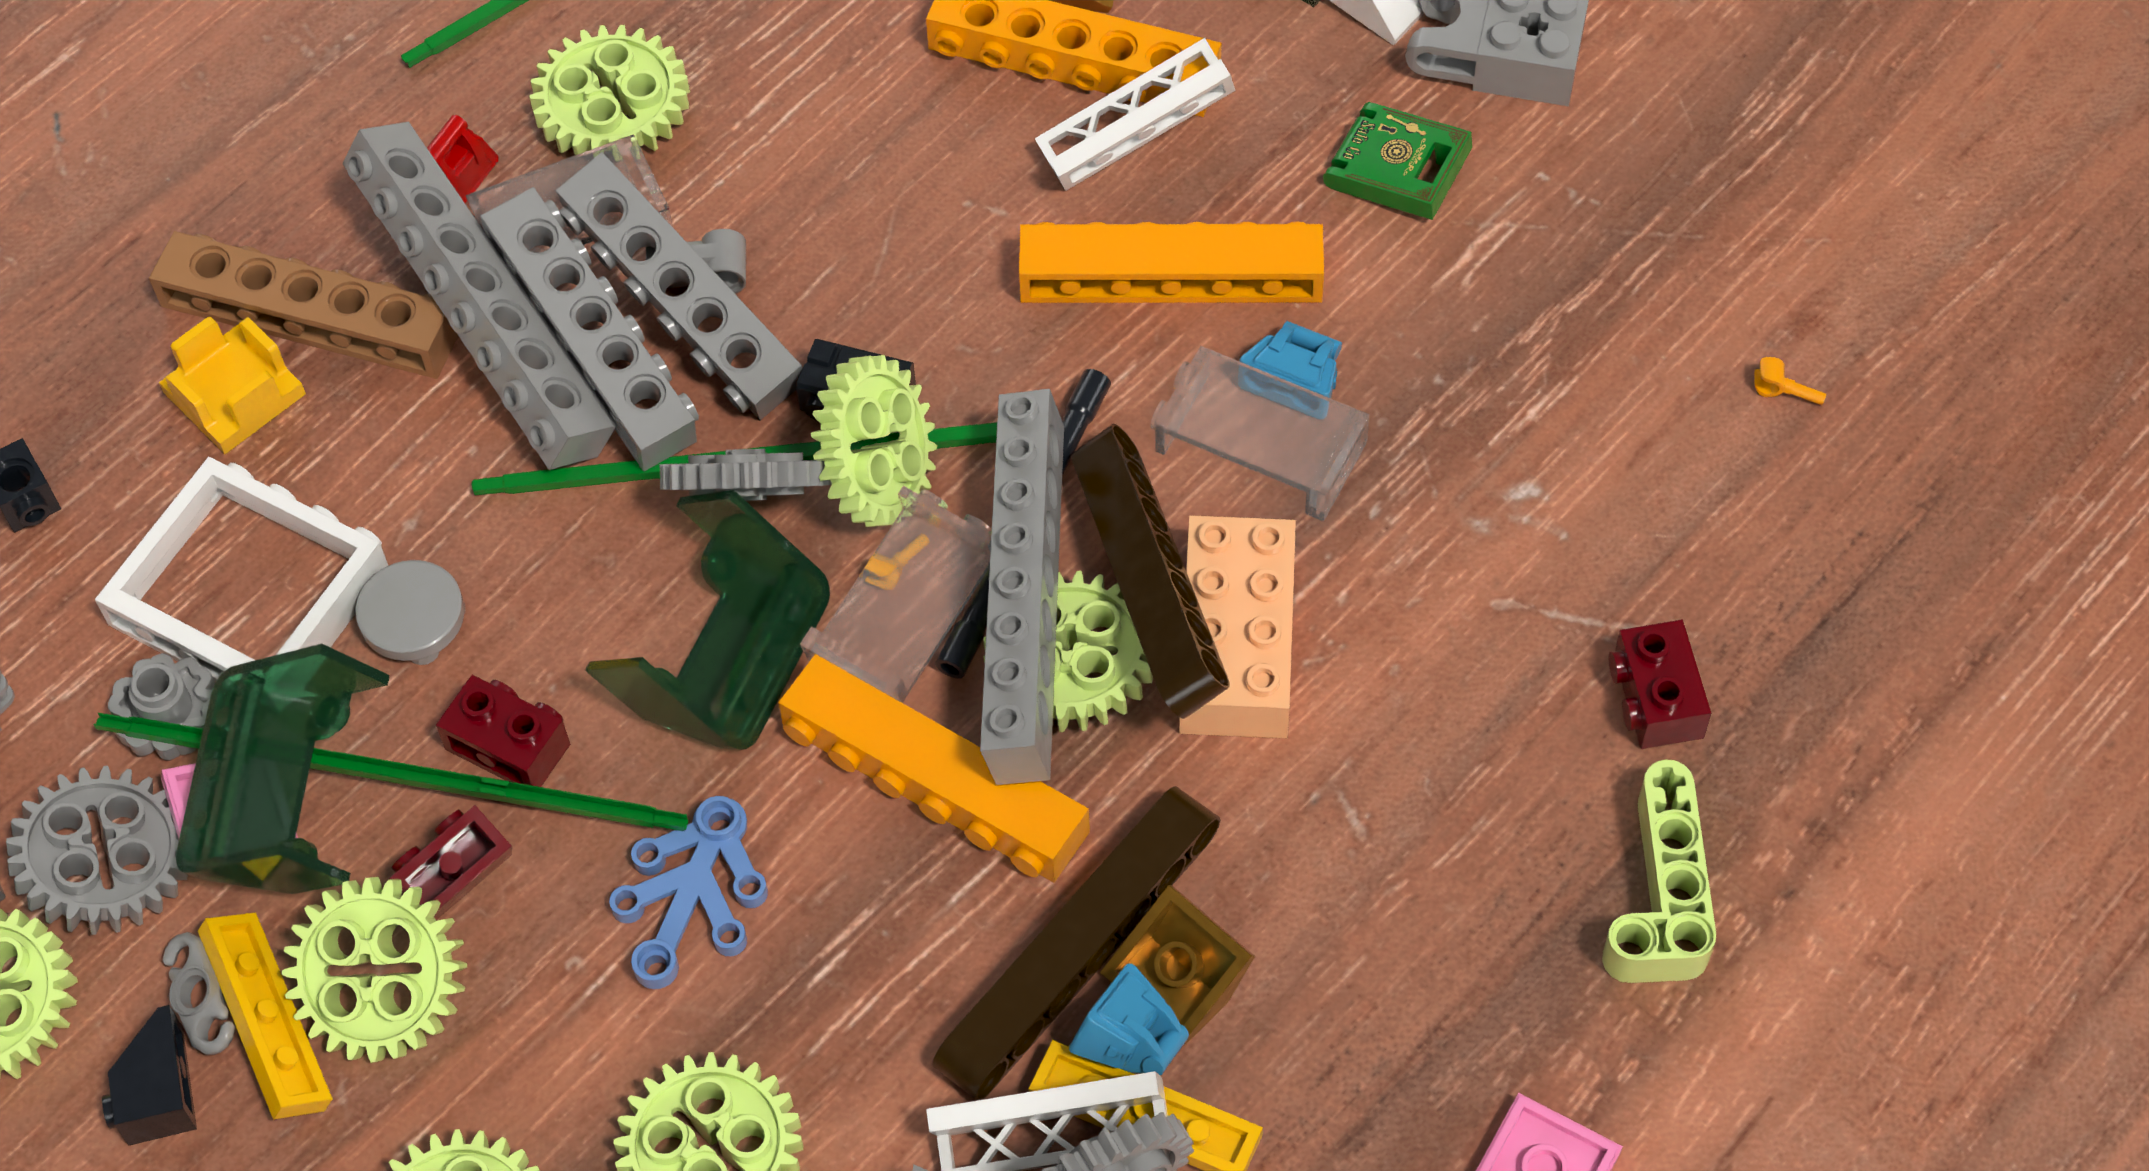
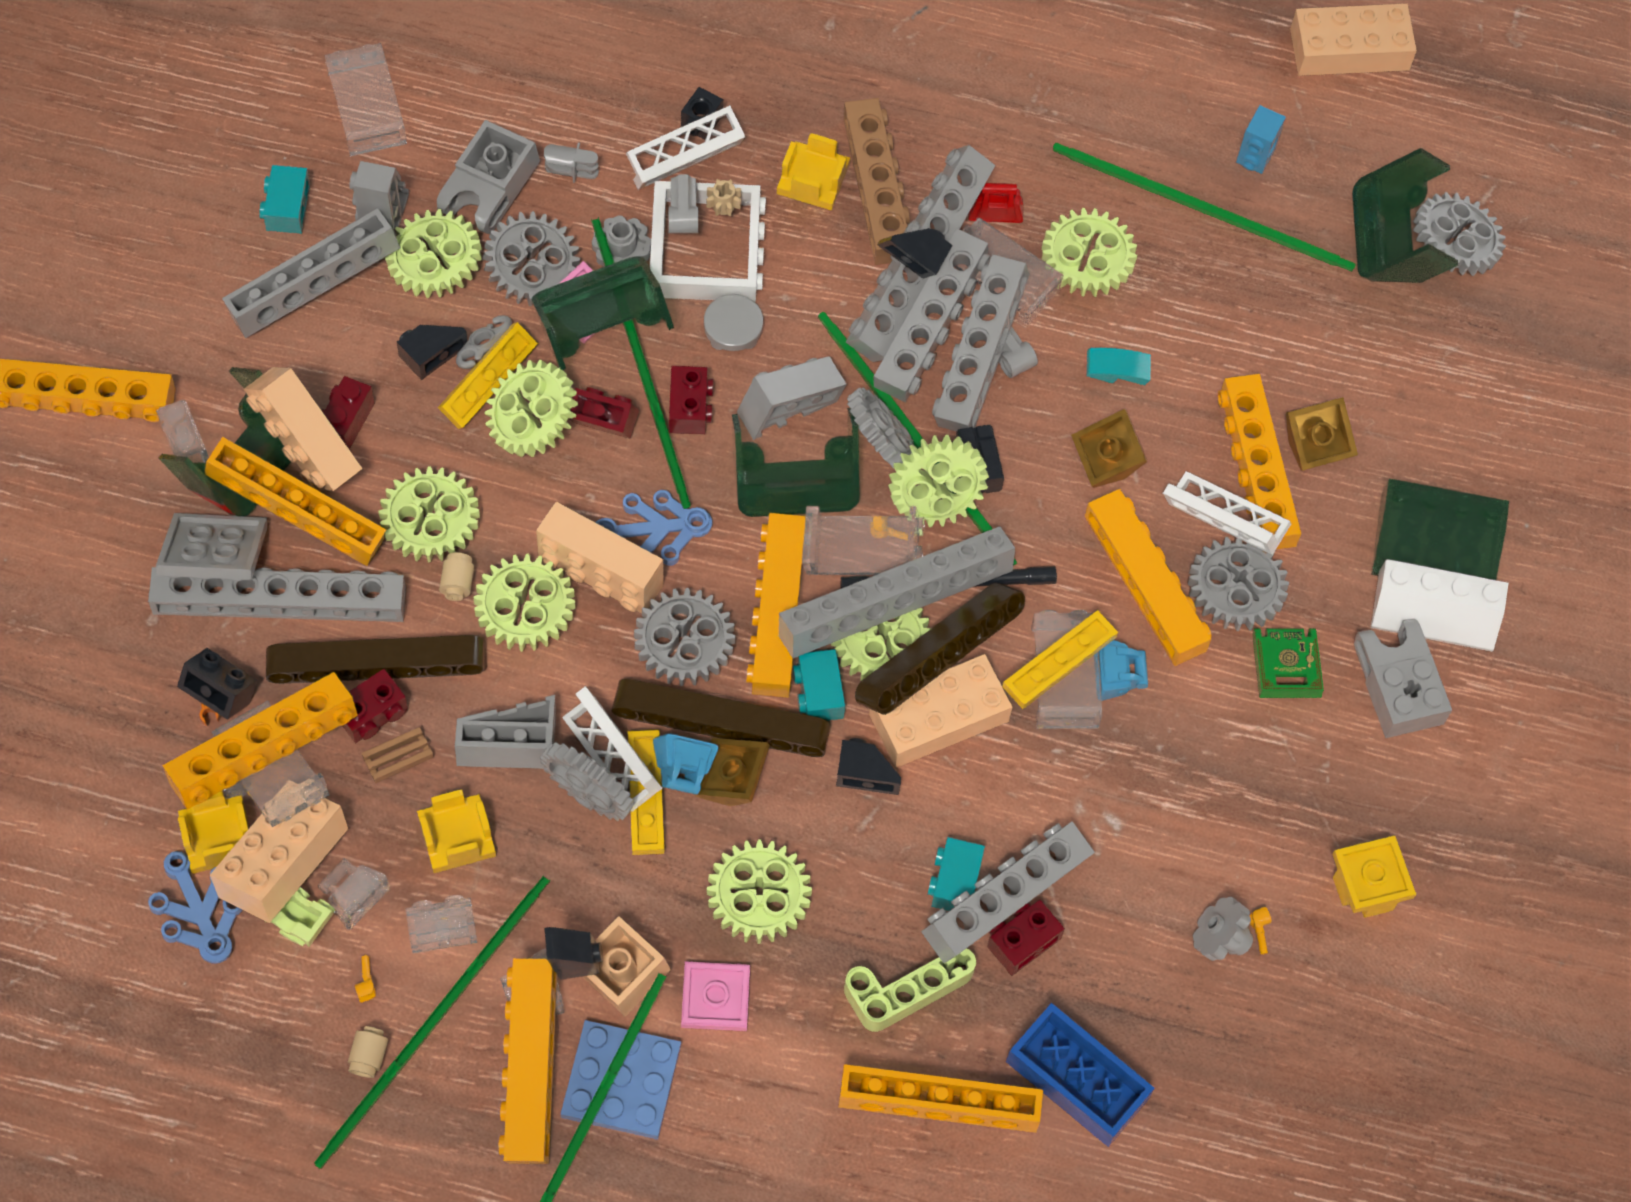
camera: 55 degrees right, 5 degrees up
(81, 540) = (690, 157): none -> white fence
(184, 580) = (683, 209): none -> light grey piece
(199, 510) = (723, 197): none -> tan gear
(488, 278) = (918, 250): none -> black slope
(587, 582) = (789, 392): none -> light grey wedge
(709, 985) = (599, 558): none -> light nougat brick
(810, 143) = (1116, 363): none -> teal slope
(864, 951) = (660, 623): none -> light grey gear
(940, 214) = (1109, 449): none -> pearl gold slope
(1107, 770) = (820, 685): none -> teal brick
(1246, 159) = (1238, 584): none -> light grey gear
(1257, 421) = (1060, 659): none -> yellow plate
(1274, 773) = (866, 768): none -> black slope
(1450, 1040) = (759, 863): none -> yellowish green gear
(1517, 729) = (958, 871): none -> teal brick
(1592, 667) = (1070, 851): none -> light grey brick
(1777, 422) = (1223, 930): none -> light grey plant
(1783, 207) = (1372, 876): none -> yellow panel
(1873, 919) = (940, 1098): none -> light orange brick
(1919, 710) = (1079, 1074): none -> blue brick

